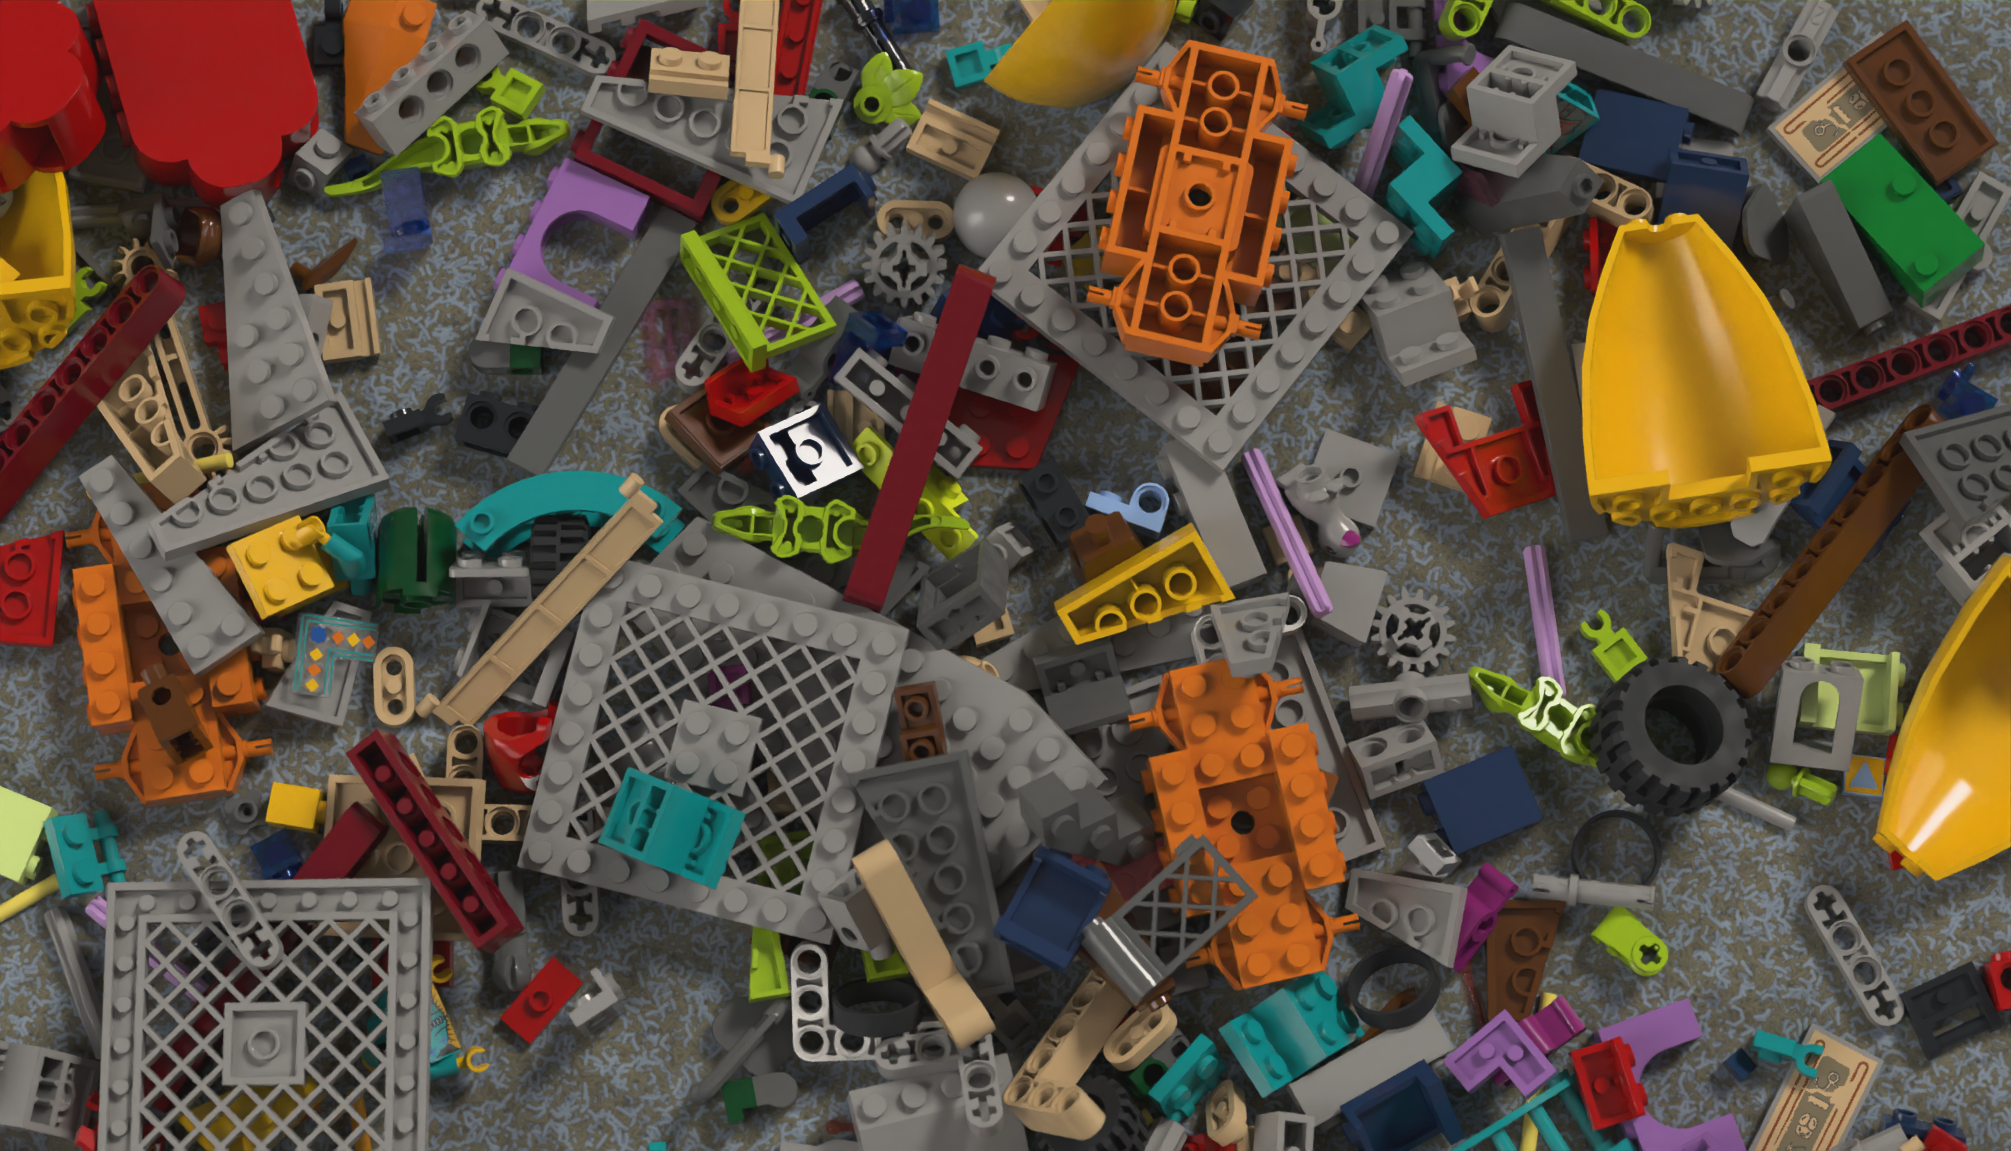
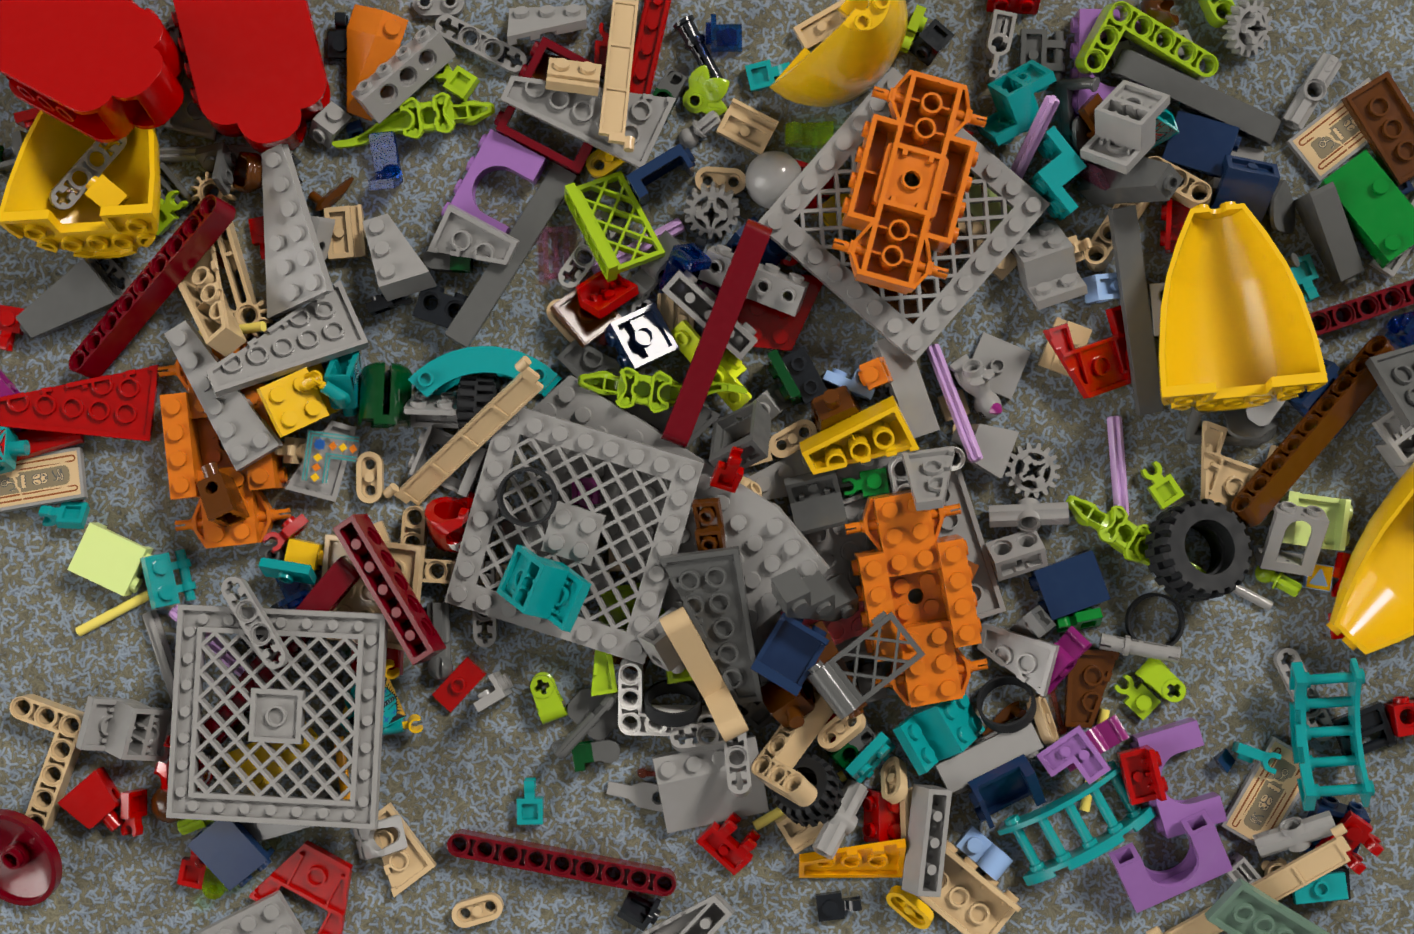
camera: 10 degrees right, 10 degrees up
(272, 831) = (287, 571): none -> teal plate
(275, 768) = (291, 529): none -> red plate
(429, 355) = (394, 260): none -> light grey wedge
(600, 687) = (503, 509): none -> black tyre
(683, 1020) = (547, 702): none -> lime piece
(947, 643) = (729, 474): none -> red plate
(1018, 497) = (778, 370): none -> dark green plate
(1041, 598) = (791, 438): none -> tan plate
(1044, 148) = (808, 134): none -> clear neon green leg
(1054, 997) = (787, 707): none -> reddish brown torso
(1162, 490) = (874, 373): none -> orange brick
(1162, 658) = (871, 483): none -> green plate
(1454, 1011) = (1044, 721): none -> tan plate
(1499, 355) = (1101, 288): none -> light blue plate
(1505, 855) = (1081, 620): none -> green plate
(1601, 976) = (1139, 699): none -> lime plate
(1805, 324) = (1304, 276): none -> teal plate
(1853, 1012) = (1302, 733): none -> teal fence

